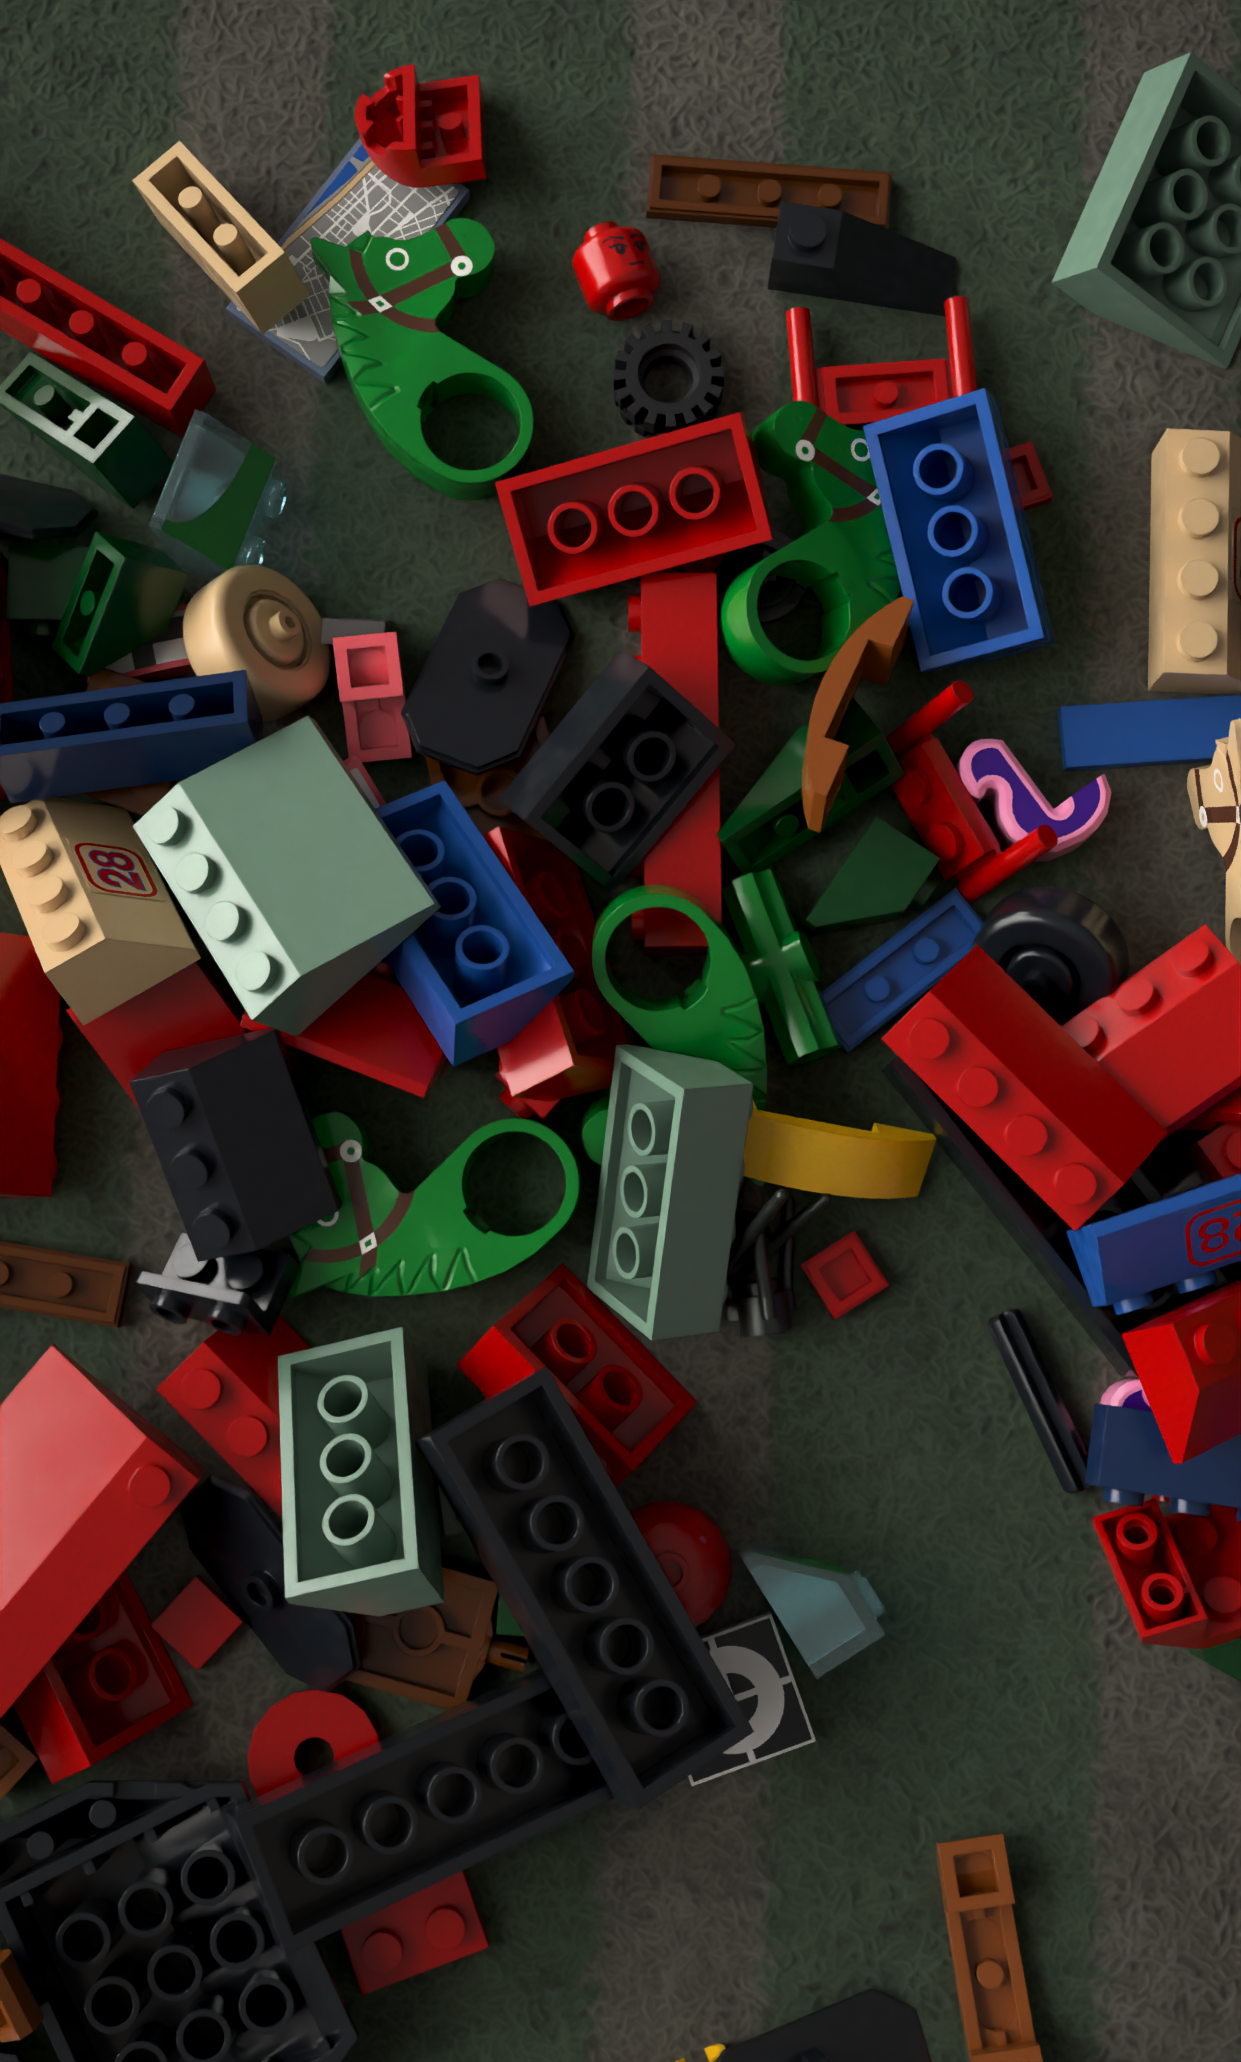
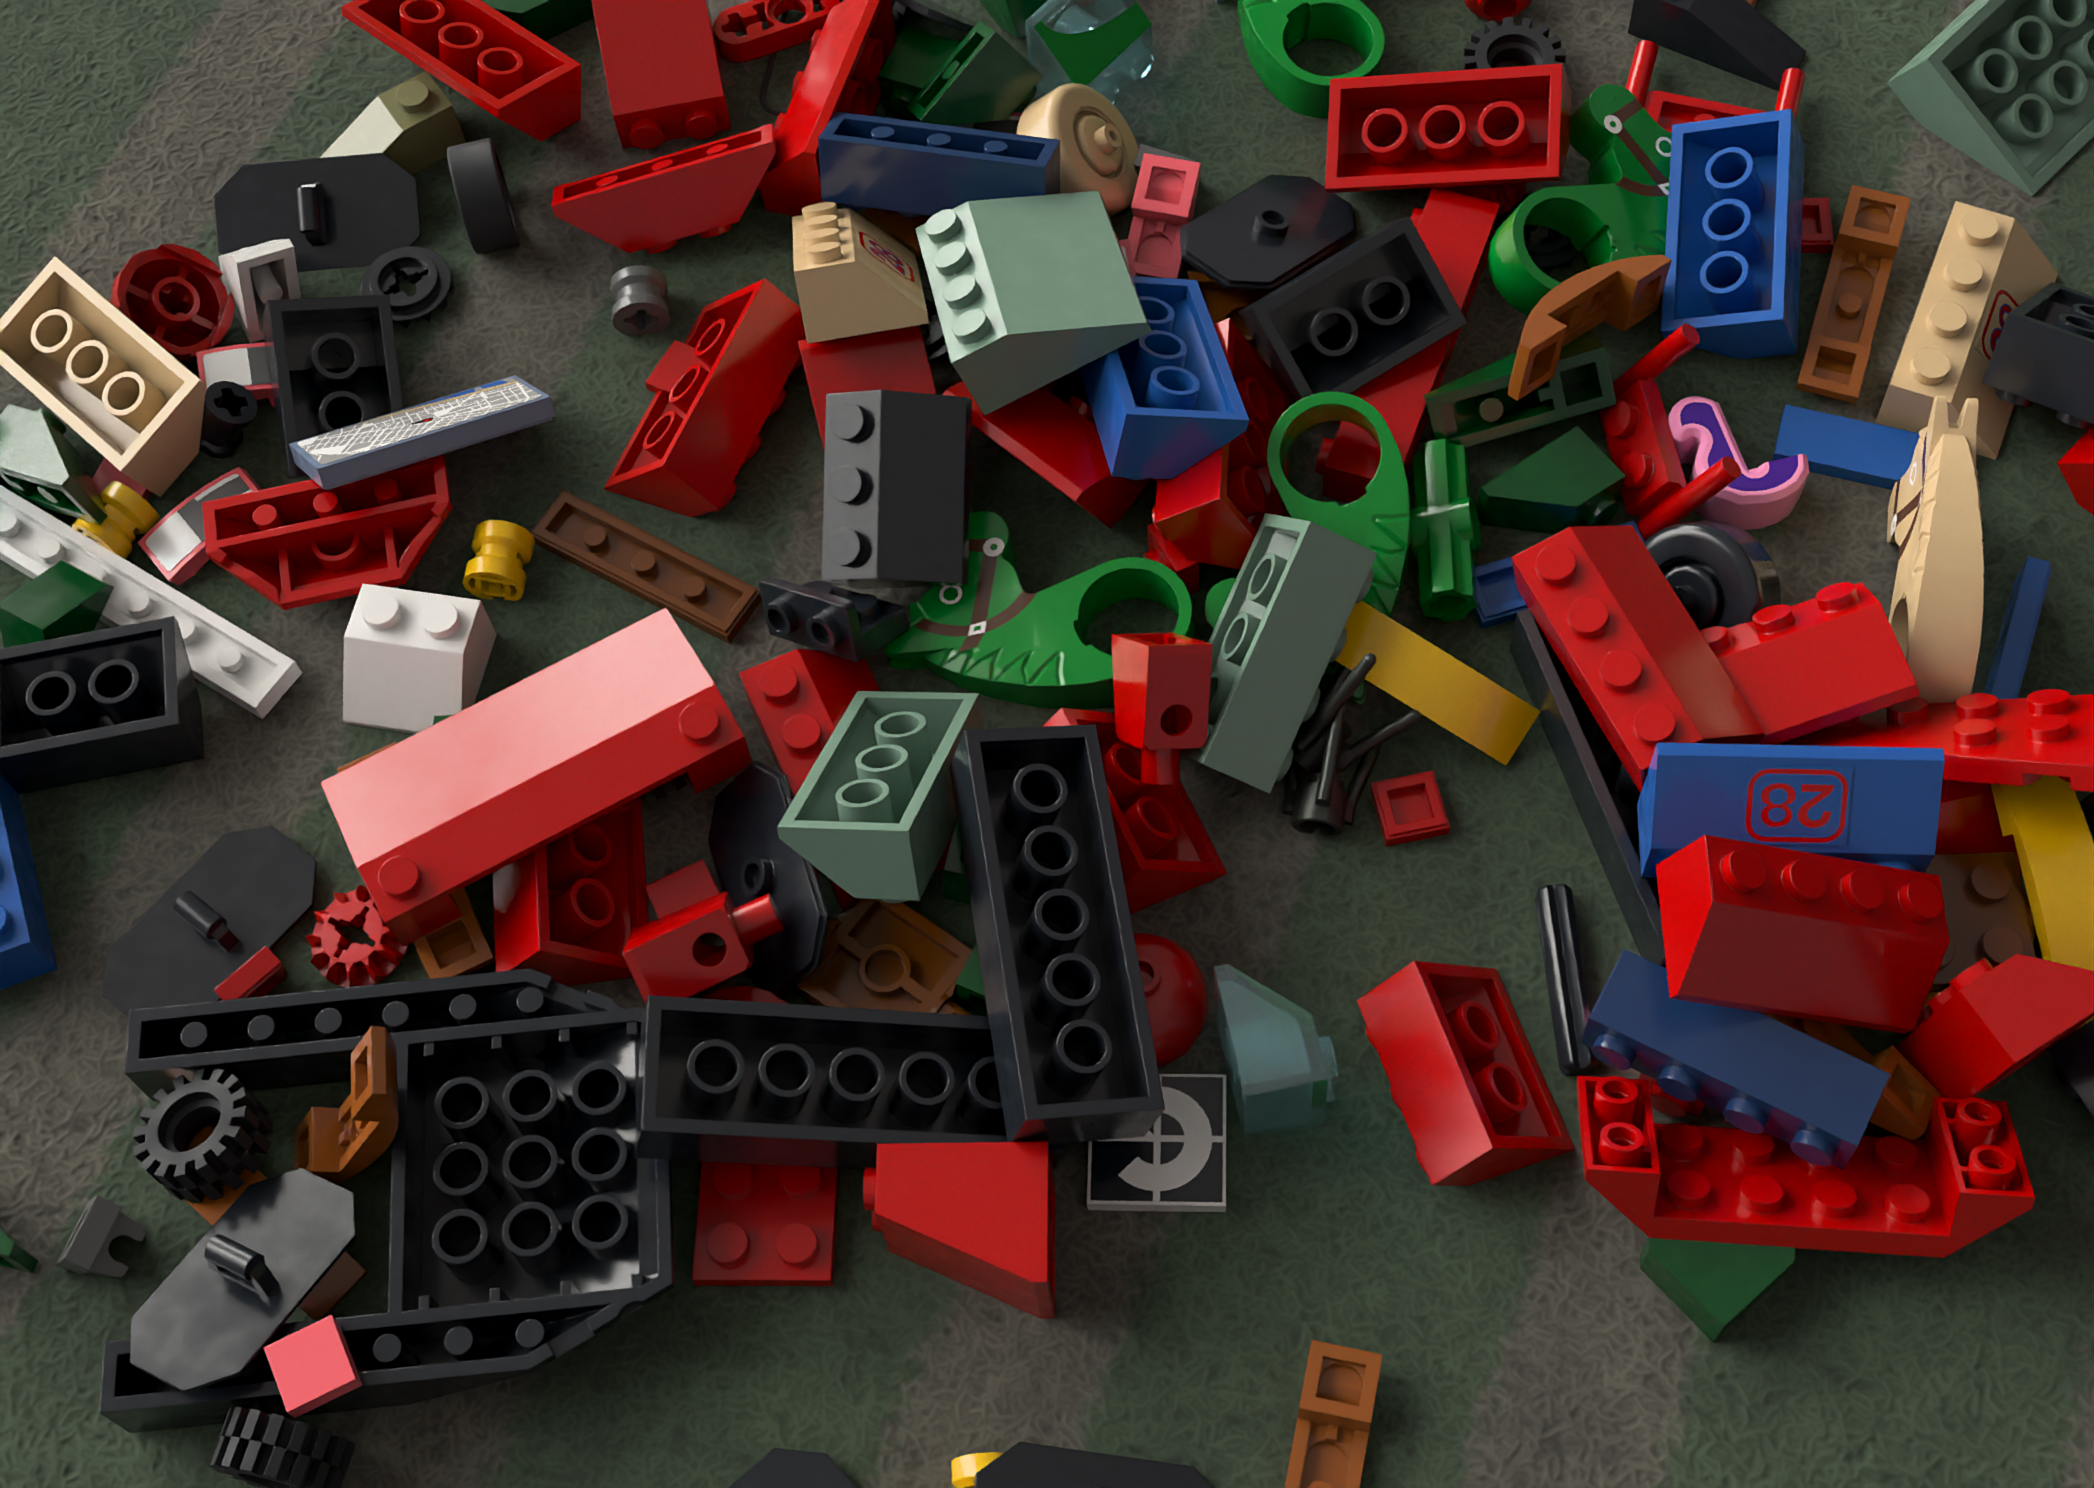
camera: 30 degrees right, 20 degrees down
(235, 1697) = (674, 960): none -> red torso
(584, 1277) = (1161, 698): none -> red torso
(604, 1870) = (971, 1215): none -> red slope
(986, 1537) = (1462, 1073): none -> red slope
(1088, 559) = (1852, 294): none -> dark orange slope

